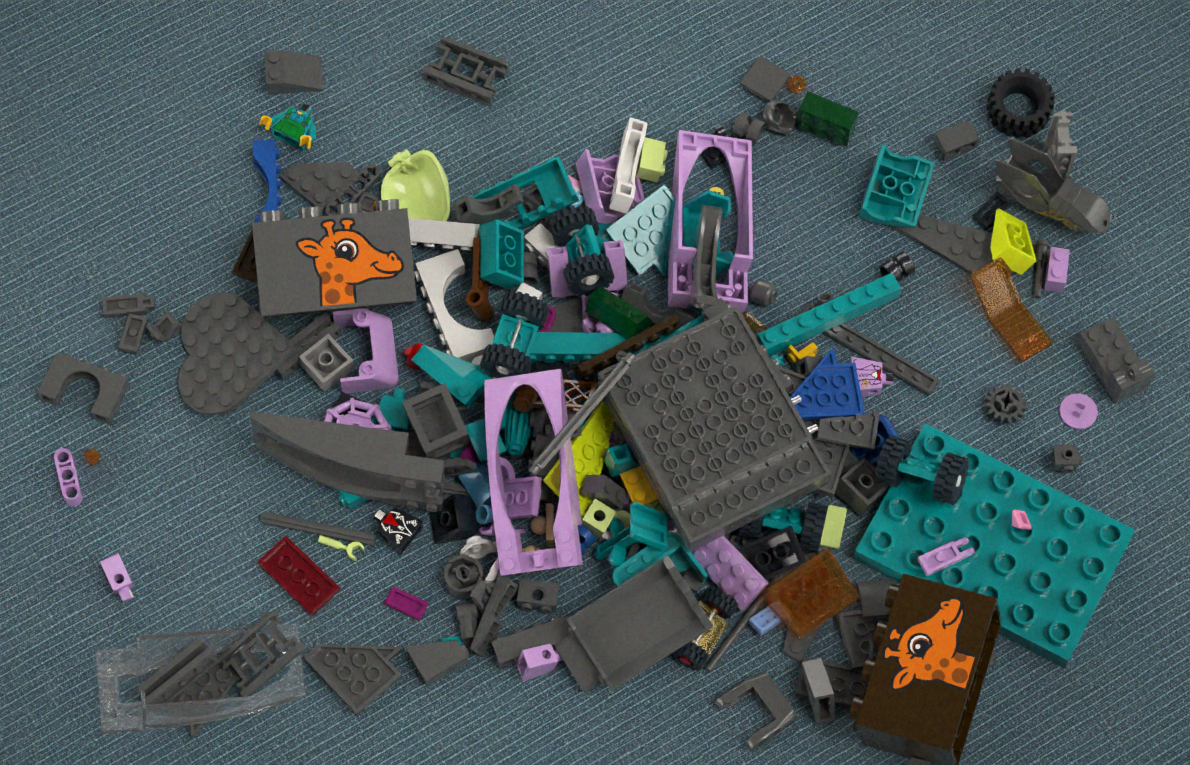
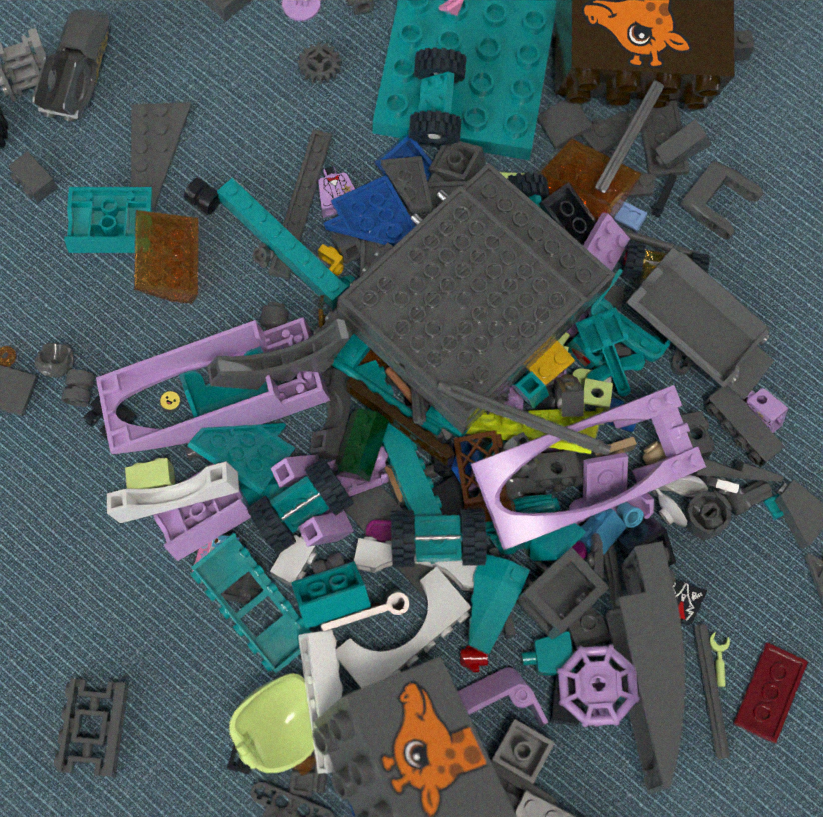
camera: 110 degrees left, 5 degrees up
(406, 603) = (753, 568): magenta tile -> none
(489, 209) = (272, 631): dark grey arch -> none
(776, 659) = (664, 195): none -> black tile
(826, 119) = (46, 307): dark green piece -> none
(829, 620) = (629, 136): none -> dark grey axle
(843, 218) = (166, 256): none -> clear orange slope
(944, 556) = (515, 60): lavender hinge -> none
(982, 221) = (117, 136): black tile -> none
(1007, 312) = (221, 81): clear orange windscreen -> none
(1012, 242) = (140, 95): neon yellow slope -> none
(1041, 258) = (146, 70): dark grey pin -> none
(1056, 269) = (155, 51): lavender brick -> none

